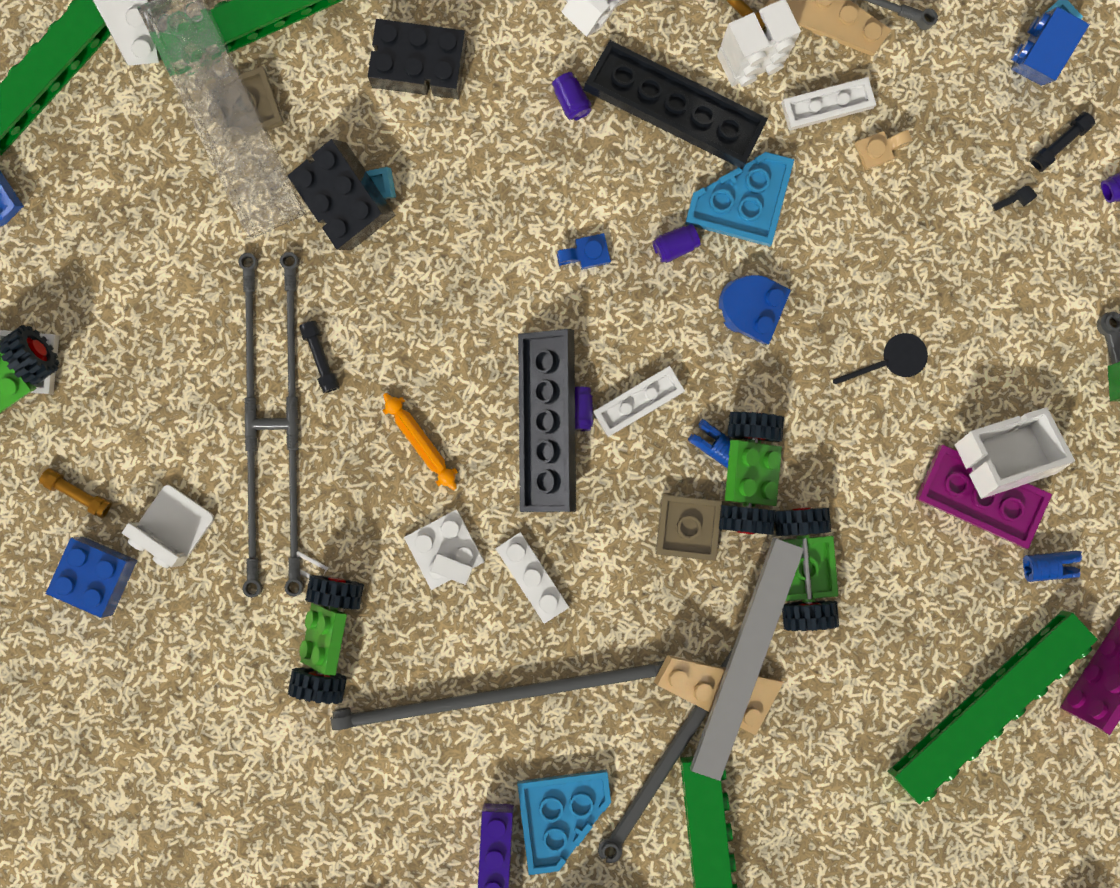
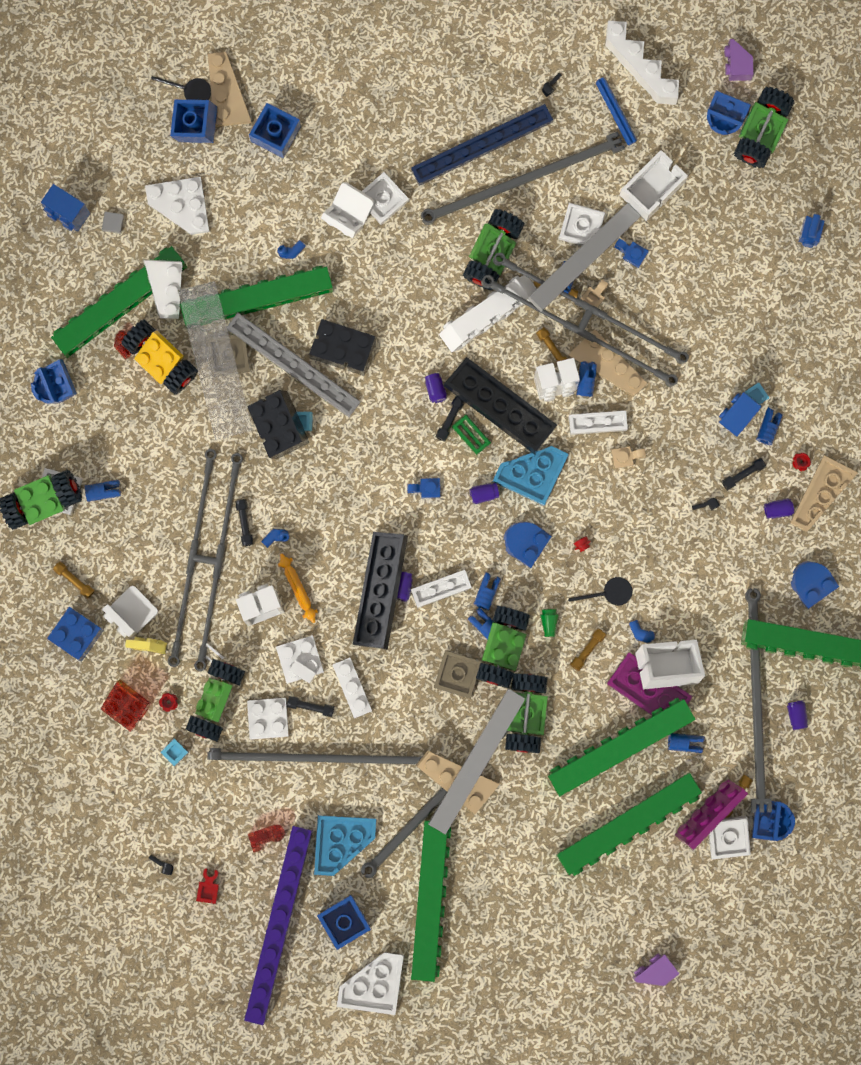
camera: 15 degrees right, 5 degrees down
(77, 118) = (119, 347): none -> clear red arm
(91, 348) = (100, 490): none -> blue hinge
(136, 125) = (159, 357): none -> plate
(190, 672) = (125, 705): none -> clear red plate
(206, 573) = (148, 644): none -> light yellow hinge
(248, 652) = (173, 702): none -> red plate
(280, 728) = (174, 752): none -> medium azure plate
(346, 100) = (293, 365): none -> light grey tile
(363, 481) = (259, 605): none -> white piece
(370, 367) = (275, 535): none -> blue arm
(412, 648) = (267, 718): none -> white plate
(448, 618) = (294, 703): none -> black bar
(450, 825) = (272, 833): none -> clear red leg
(596, 162) = (442, 433): none -> black bar
(658, 174) = (465, 439): none -> green tile
(709, 399) = (485, 595): none -> blue hinge
(802, 52) = (587, 376): none -> blue hinge
(812, 420) = (549, 622): none -> green cone
(839, 293) = (582, 544): none -> red plate
(890, 429) = (598, 636): none -> pearl gold bar
(953, 414) = (640, 634): none -> blue arm
(962, 591) = (620, 747): none -> green brick
(1088, 63) = (768, 430): none -> blue hinge

